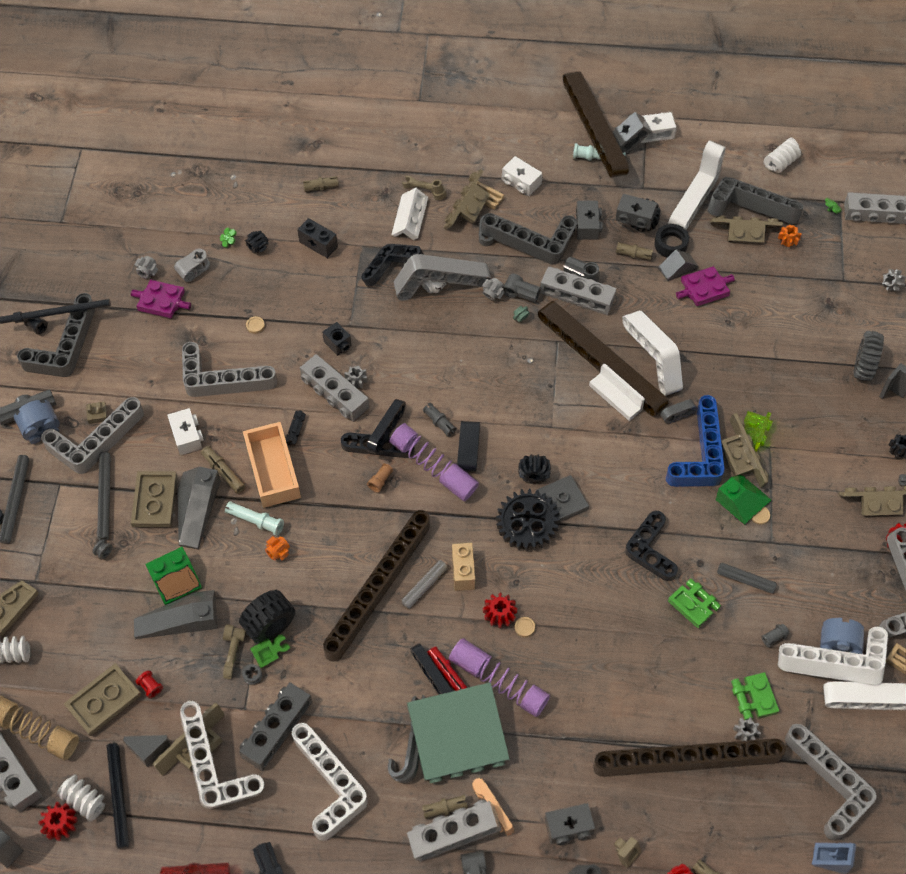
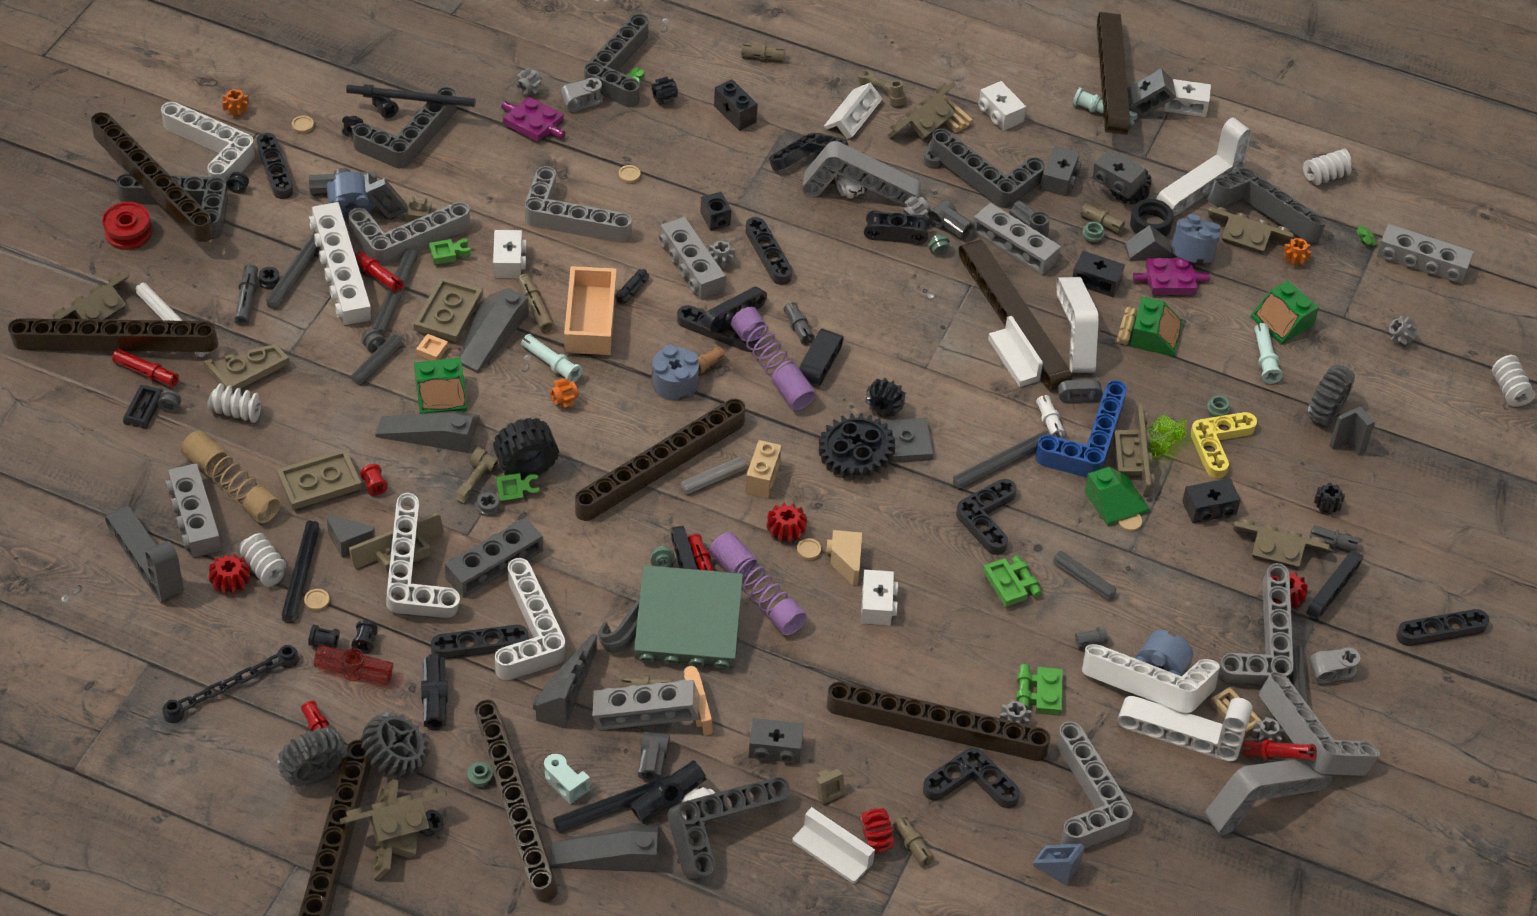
camera: 15 degrees right, 10 degrees down
(13, 350) = (348, 122): none -> black plate
(27, 446) = (340, 264): none -> white brick
(65, 412) = (384, 196): none -> dark grey panel
(78, 480) = (373, 268): none -> red pin
(110, 565) = (376, 359): none -> dark grey axle
(133, 445) = (446, 252): none -> bright green plate
(140, 818) = (316, 600): none -> tan piece
(153, 539) = (432, 348): none -> light nougat tile
(160, 856) = (324, 637): none -> black bush
(195, 843) = (364, 636): none -> black bush
(203, 226) = (613, 56): none -> dark grey beam
(294, 815) = (479, 638): none -> black beam
(360, 499) = (675, 372): none -> sand blue brick
(378, 842) = (563, 689): none -> dark grey wedge
(393, 359) = (768, 250): none -> black beam
(413, 678) = (664, 553): none -> sand green plate
(483, 309) = (896, 227): none -> black piece
(558, 624) = (845, 554): none -> tan slope
(598, 668) = (878, 597): none -> white brick
(632, 261) = (1093, 232): none -> sand green plate
(642, 493) = (997, 461): none -> dark grey axle
(652, 301) = (1099, 273): none -> black brick
(665, 442) = (1050, 416): none -> white pin
(689, 340) = (1127, 325): none -> tan axle
(712, 336) = (1156, 327): none -> green slope
(714, 250) = (1195, 239): none -> sand blue brick
(729, 794) = (968, 771): none -> black beam
(787, 386) = (1218, 406): none -> sand green plate
(792, 420) = (1245, 426): none -> light yellow beam
(802, 292) = (1286, 312): none -> slope
(807, 337) = (1269, 360): none -> light aqua pin
(815, 478) = (1211, 500): none -> black brick

